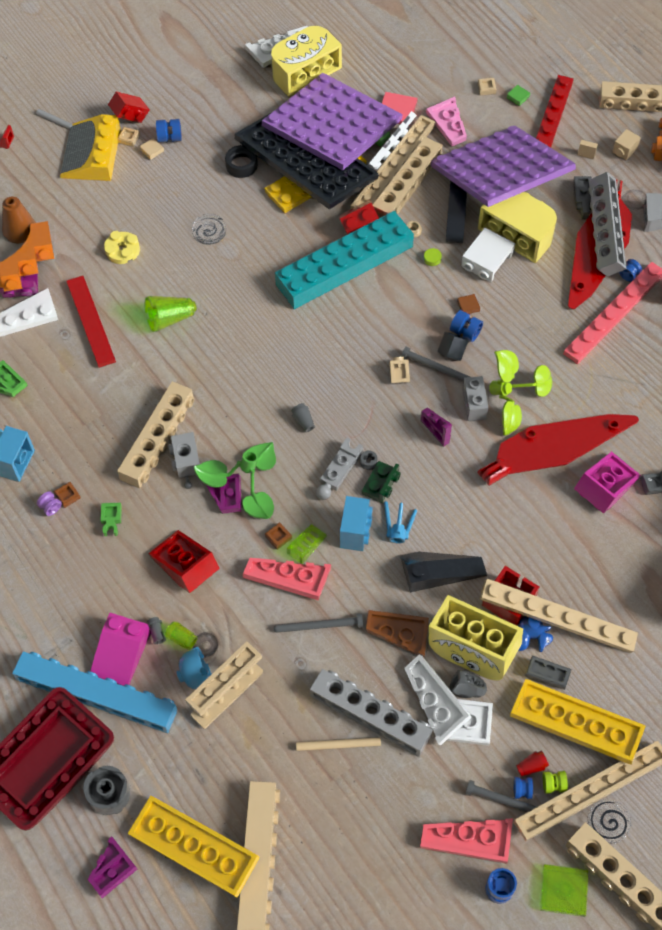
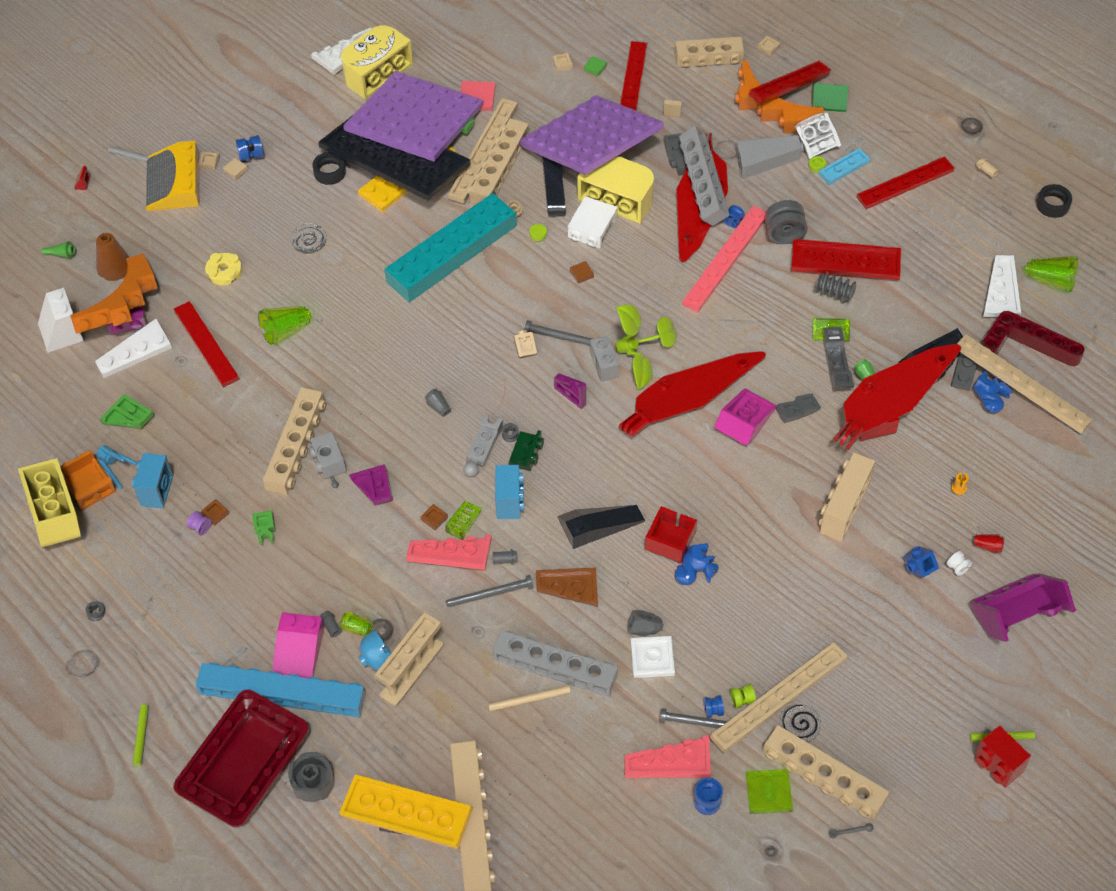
camera: 10 degrees left, 5 degrees down
(111, 869) = (329, 848): magenta wing -> none
(128, 107) = (204, 131): red brick -> none
(185, 560) = (346, 554): red slope -> none
(260, 456) = (396, 448): bright green plant -> none
(340, 590) = (505, 557): none -> dark grey pin
(358, 216) = (458, 203): red brick -> none
(392, 142) = (478, 127): white wing -> none
(397, 533) = (551, 495): dark azure plant -> none
(441, 706) = (617, 641): white wing -> none
(448, 121) = (530, 100): bright pink wing -> none
(452, 346) = (573, 313): black panel -> none
(461, 322) = (577, 290): blue wheel -> none
(474, 638) = (643, 577): light yellow brick -> none
(532, 764) = (719, 683): red cone -> none
(548, 672) = (719, 599): dark grey plate -> none
(558, 615) = (719, 543): tan plate -> none
(578, 721) = (755, 637): yellow plate -> none
(626, 144) = (709, 98): tan brick -> none

